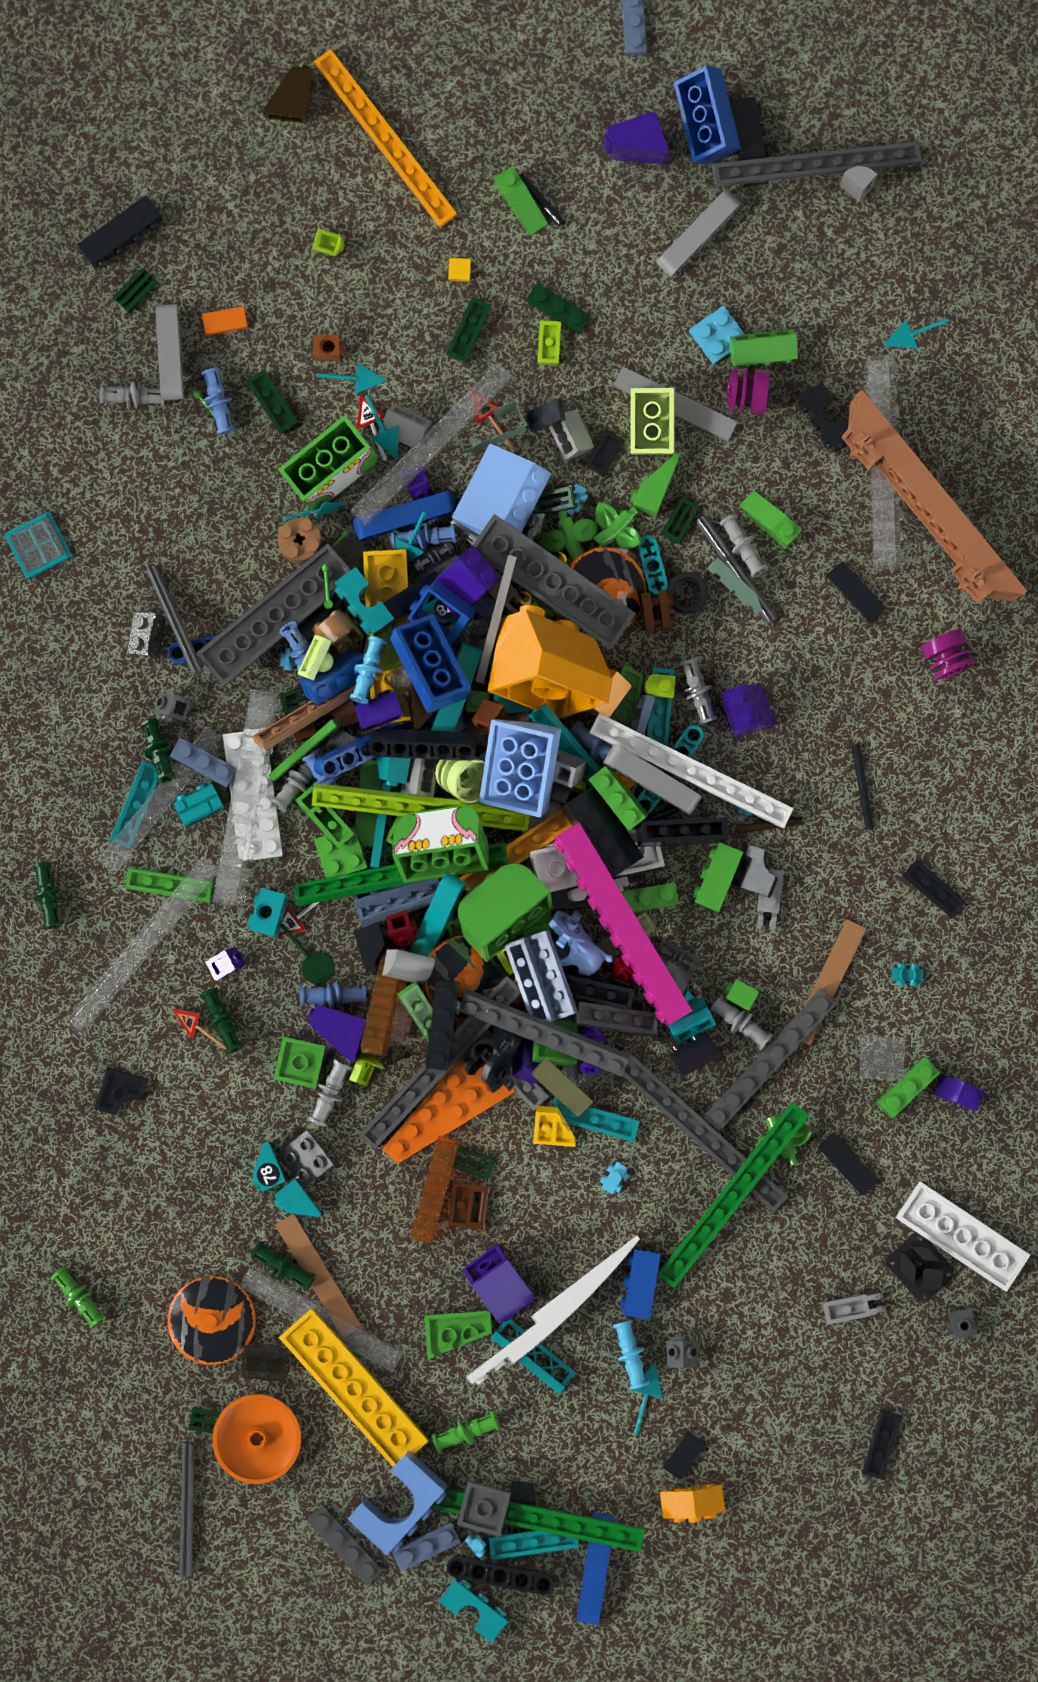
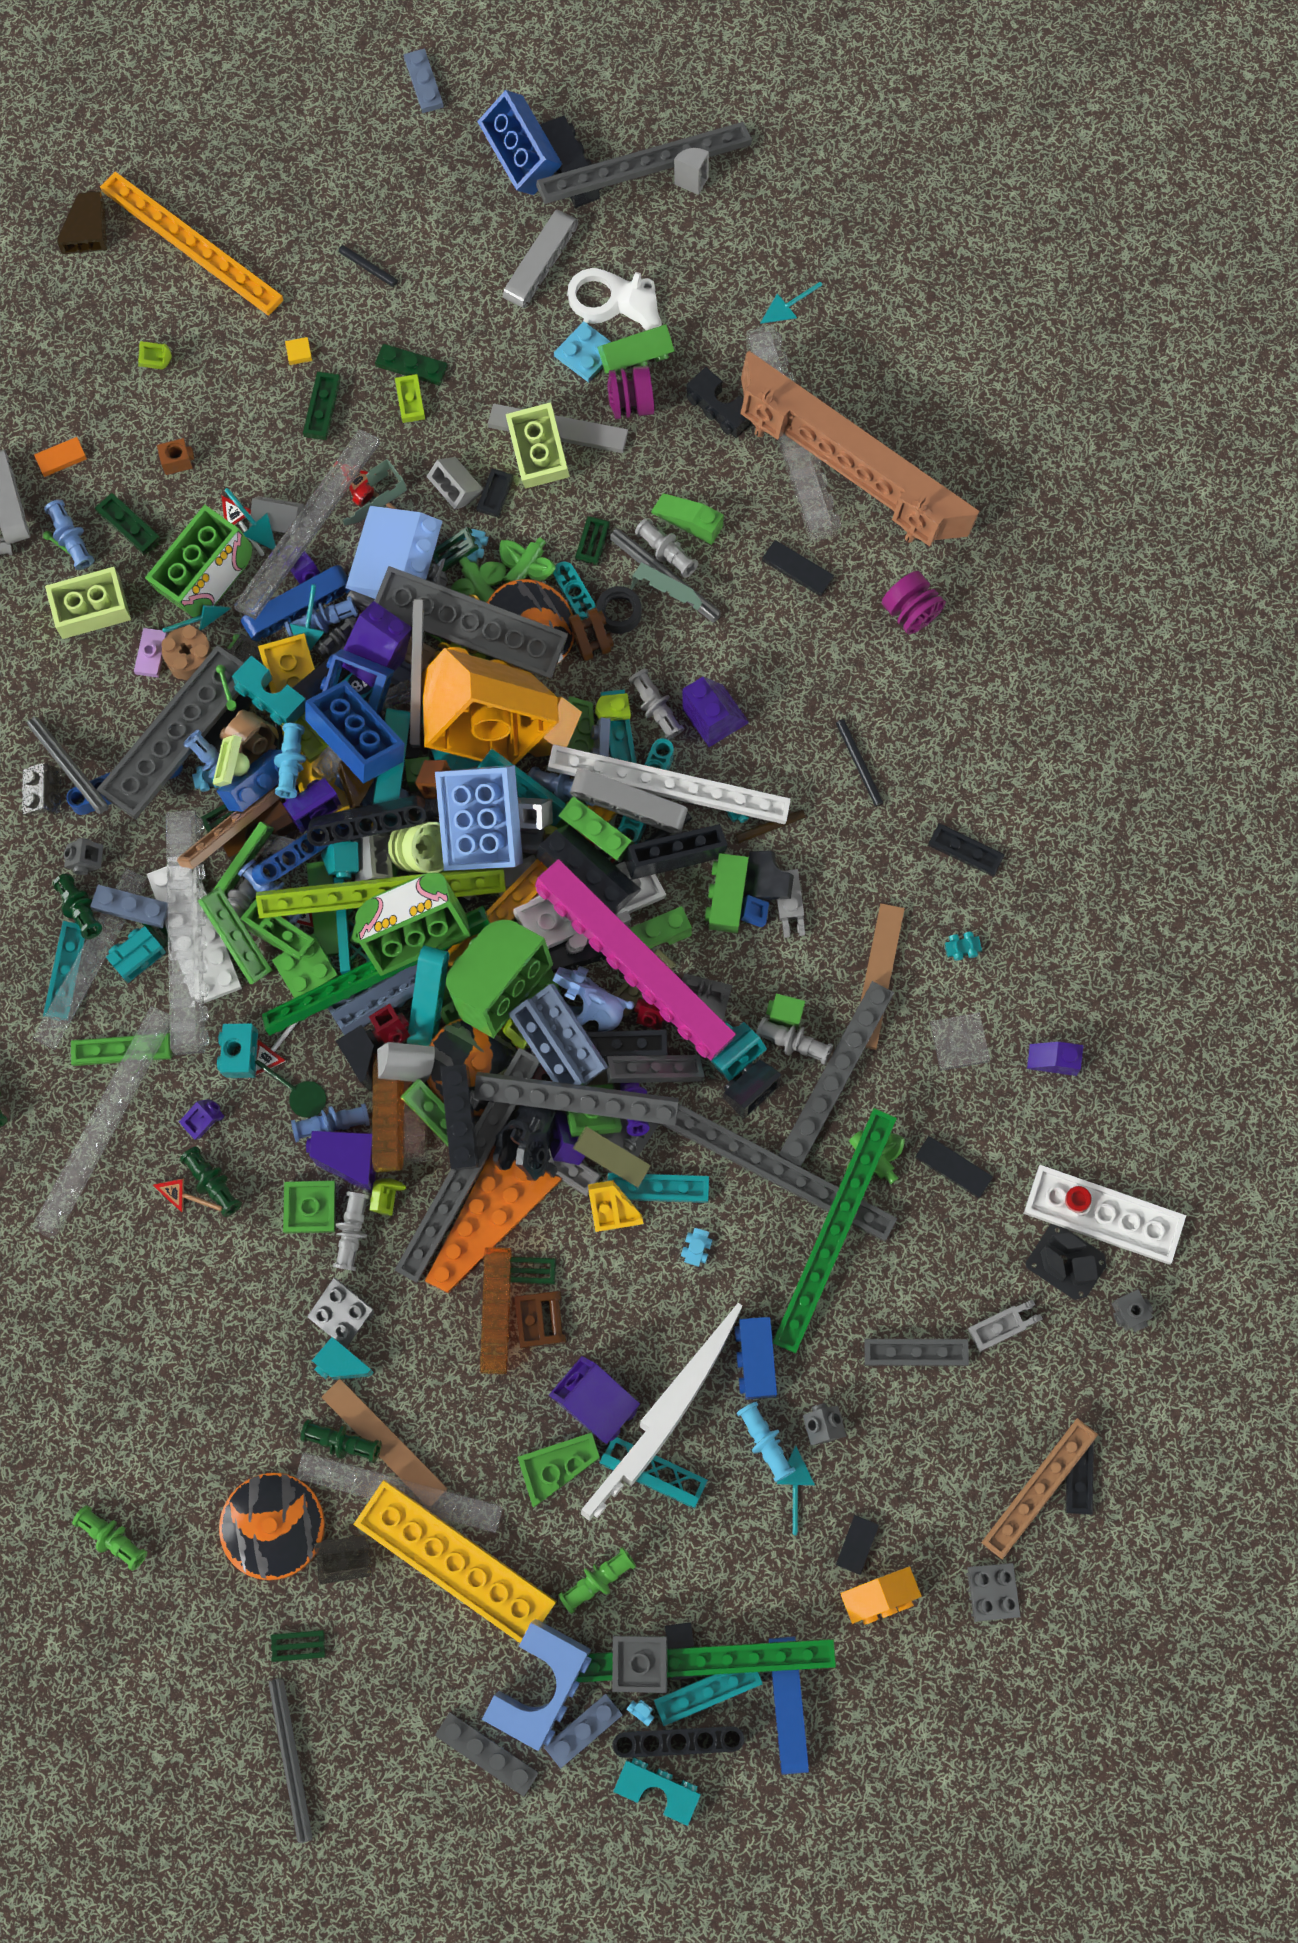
camera: 15 degrees left, 10 degrees down
(118, 1089) = (108, 1288): black tile -> none
(222, 471) = (88, 602): none -> yellowish green brick
(256, 1438) = (353, 1651): orange dish -> none
(267, 529) = (150, 653): none -> lavender plate
(267, 1169) = (299, 1336): teal slope -> none
(287, 812) = (234, 935): none -> bright green tile
(364, 378) = (221, 479): teal piece -> none
(486, 427) = (363, 494): none -> red tile
(520, 200) = (345, 268): bright green slope -> none
(546, 415) = (423, 467): black tile -> none
(637, 140) = (453, 182): dark purple slope -> none
(653, 489) = (556, 512): bright green slope -> none
(736, 899) = (754, 911): none -> blue plate
(772, 292) = (632, 298): none -> white animal
(774, 1312) = (916, 1352): none -> dark grey plate
(784, 1521) = (993, 1592): none -> dark grey hinge
(845, 1448) = (1039, 1489): none -> medium nougat tile
(908, 1087) = (997, 1065): bright green arch -> none
(943, 1219) = (1078, 1199): none -> red tile

